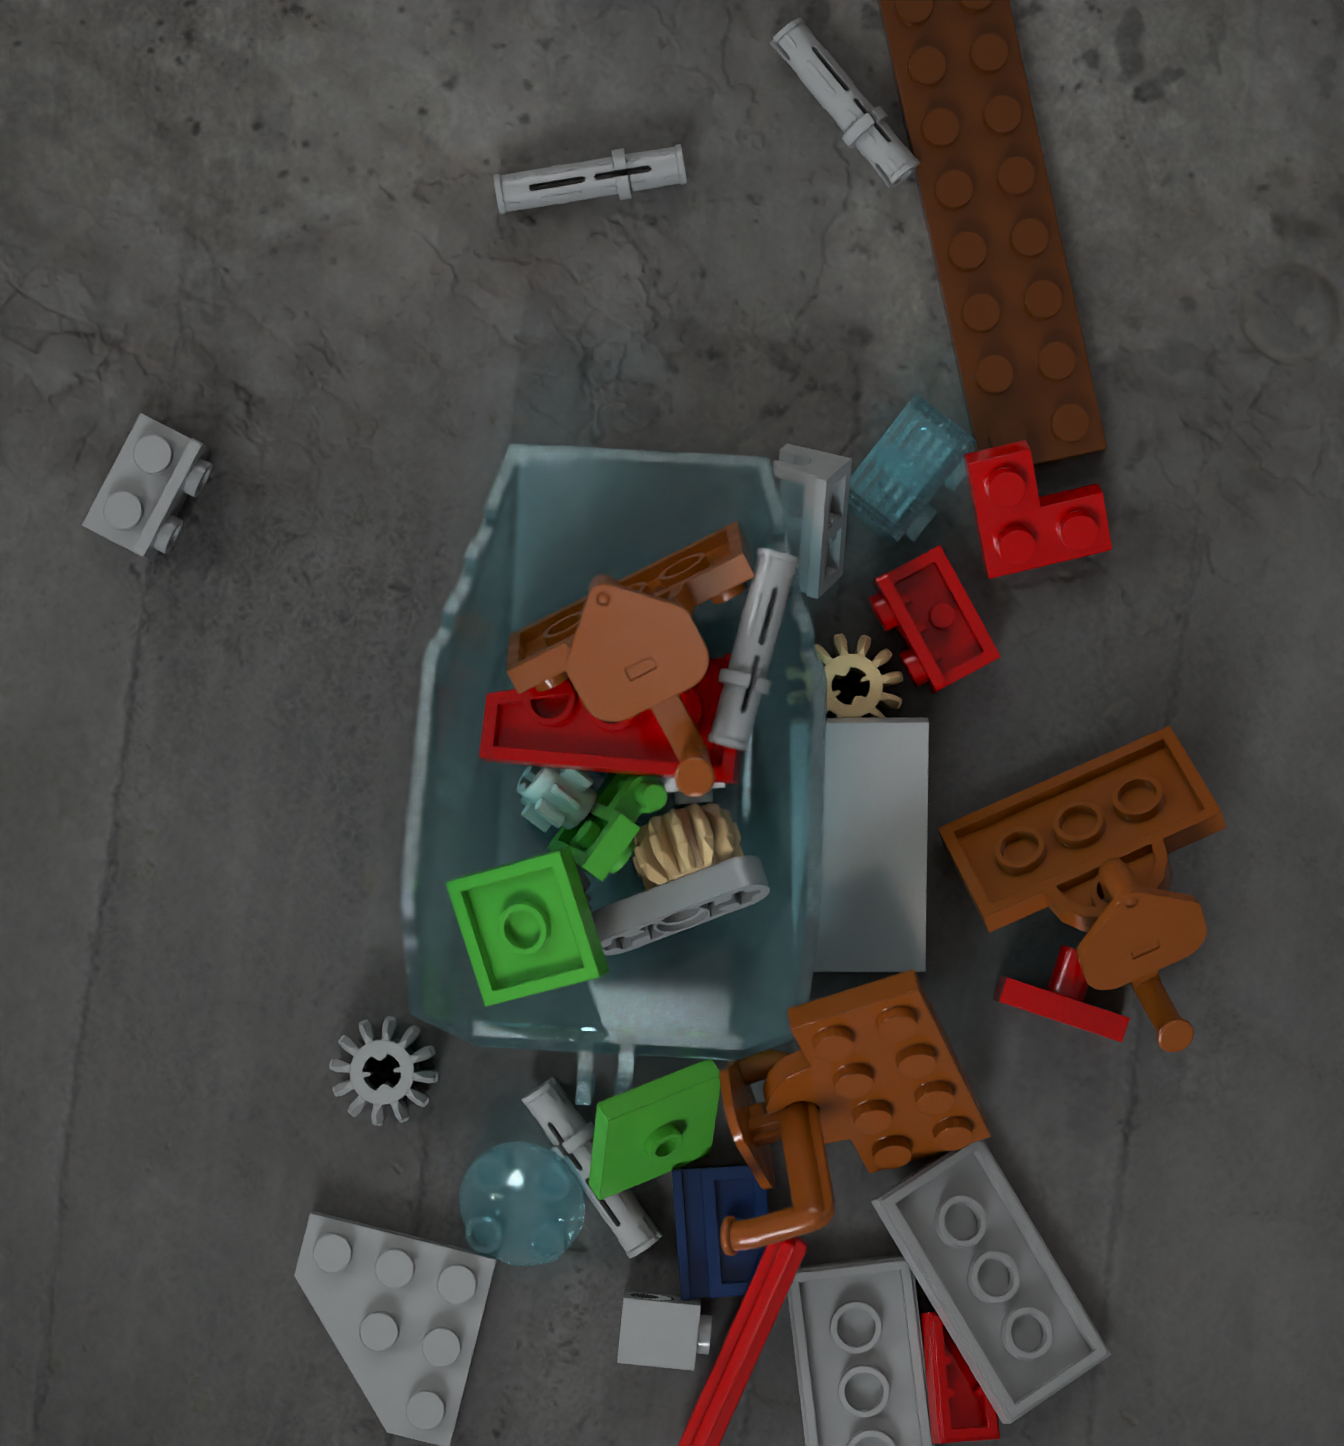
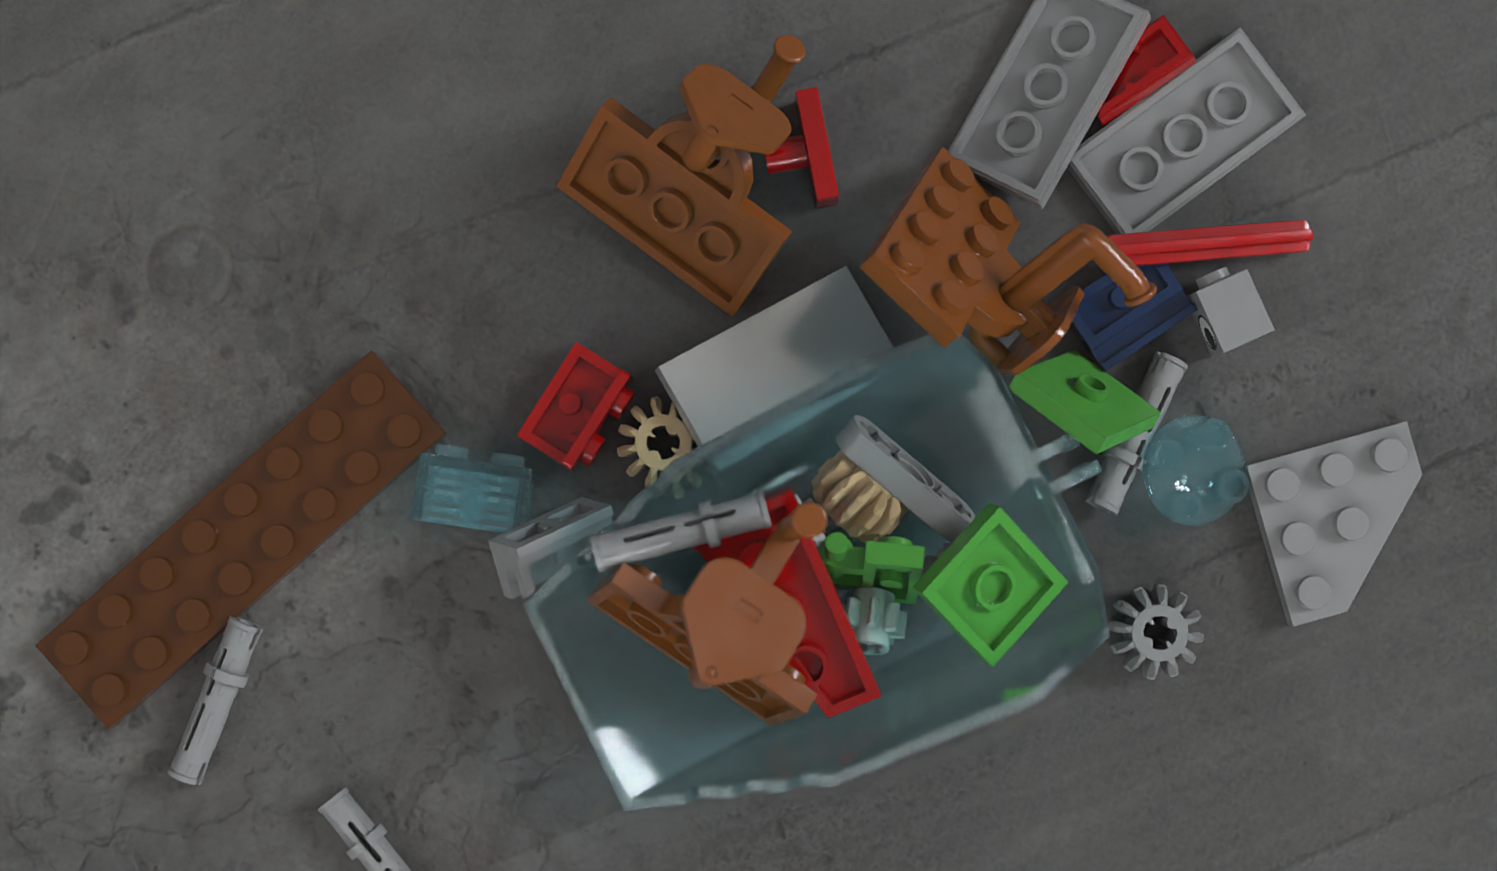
camera: 120 degrees left, 0 degrees up
(1027, 530) = (467, 385): red plate -> none

